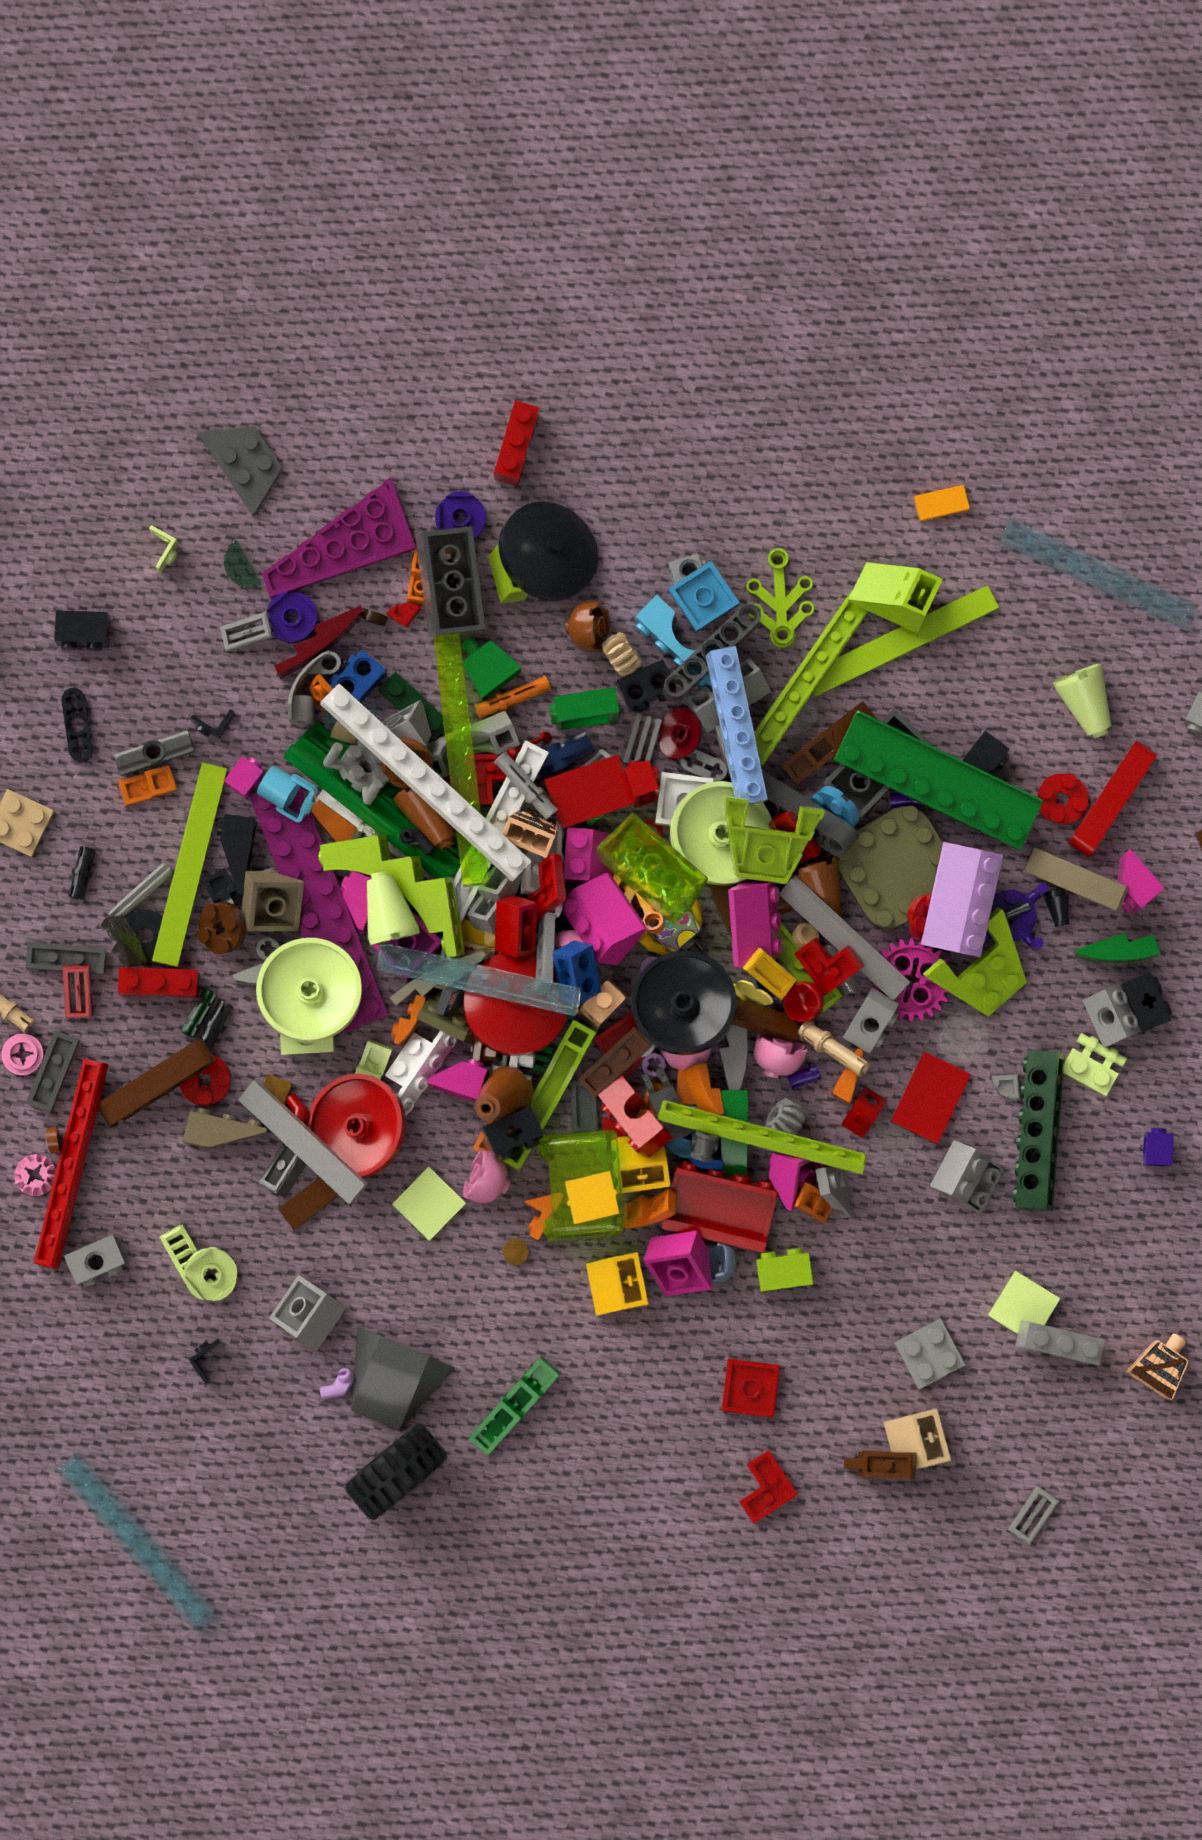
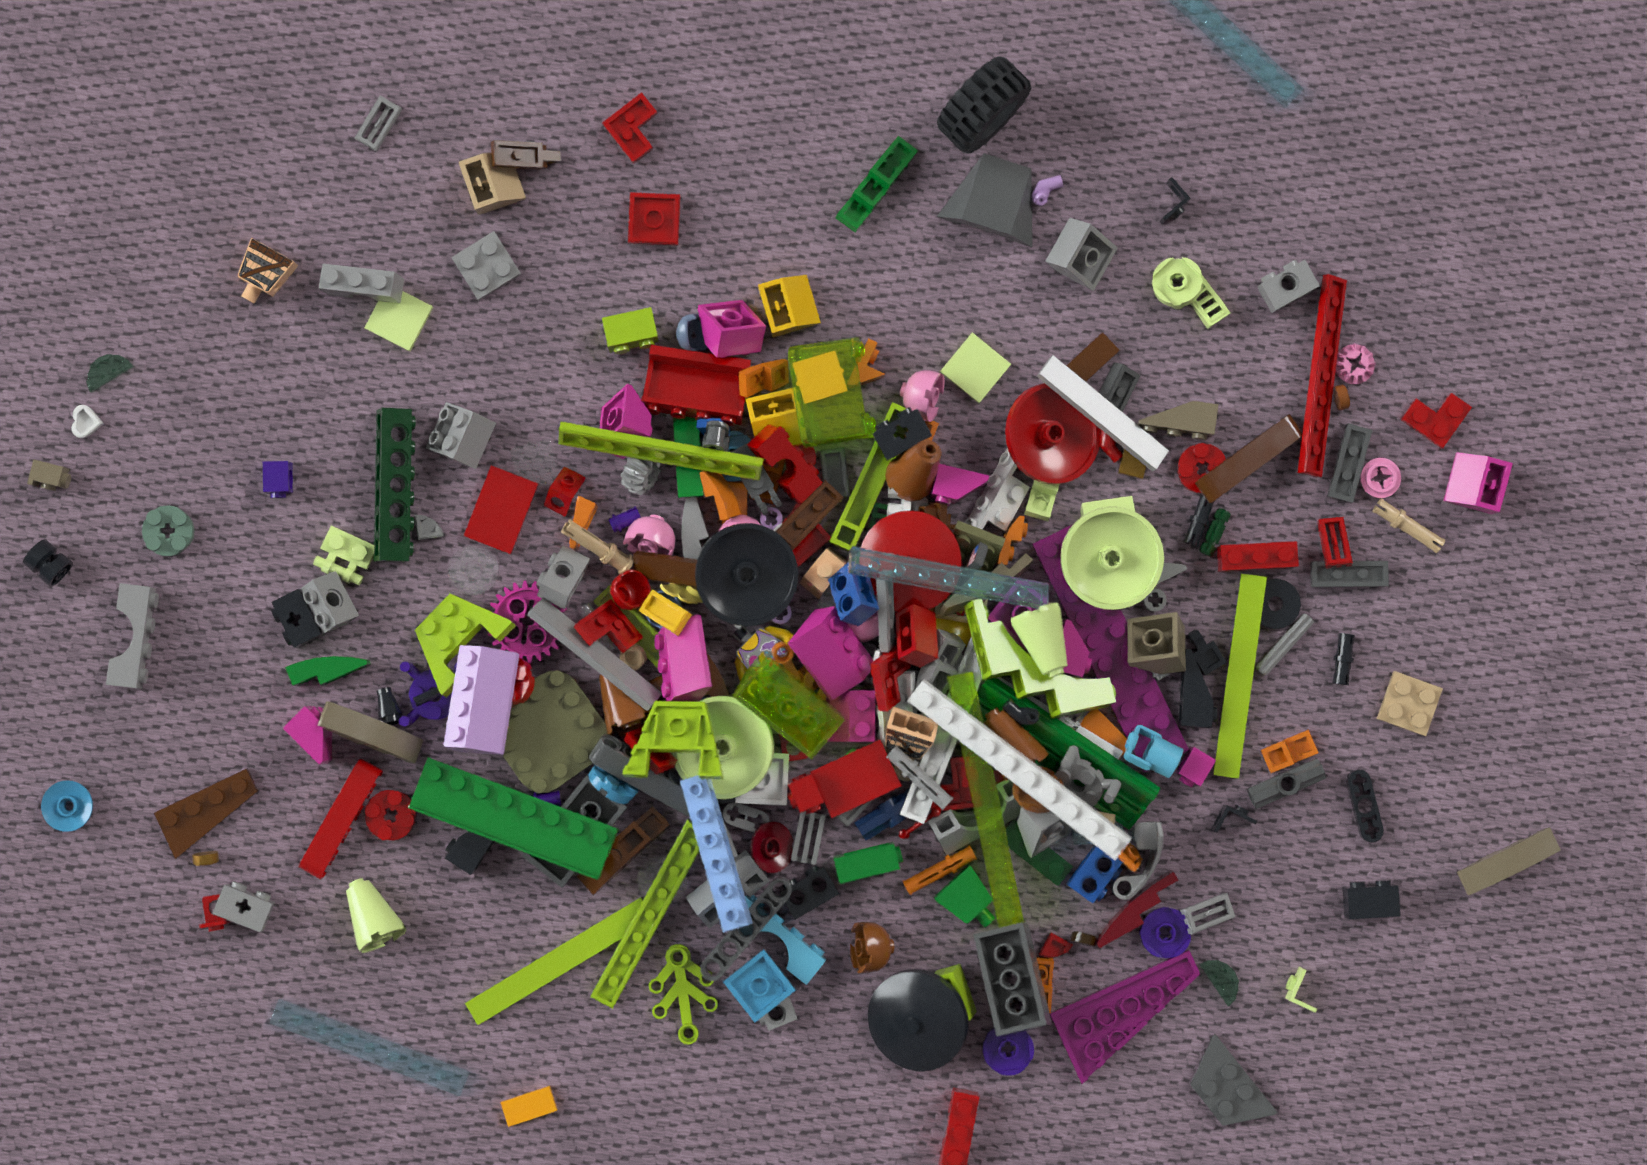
camera: 175 degrees right, 5 degrees up
(127, 946) = (1291, 588): clear smoke slope -> none
(209, 930) = (1212, 610): reddish brown plate -> none
(515, 1252) = (888, 329): pearl gold tile -> none
(622, 654) = (835, 921): tan gear -> none
(812, 1203) = (605, 396): orange slope -> none
(833, 1188) = (587, 409): light grey wing -> none
(896, 593) = (567, 1007): lime slope -> none

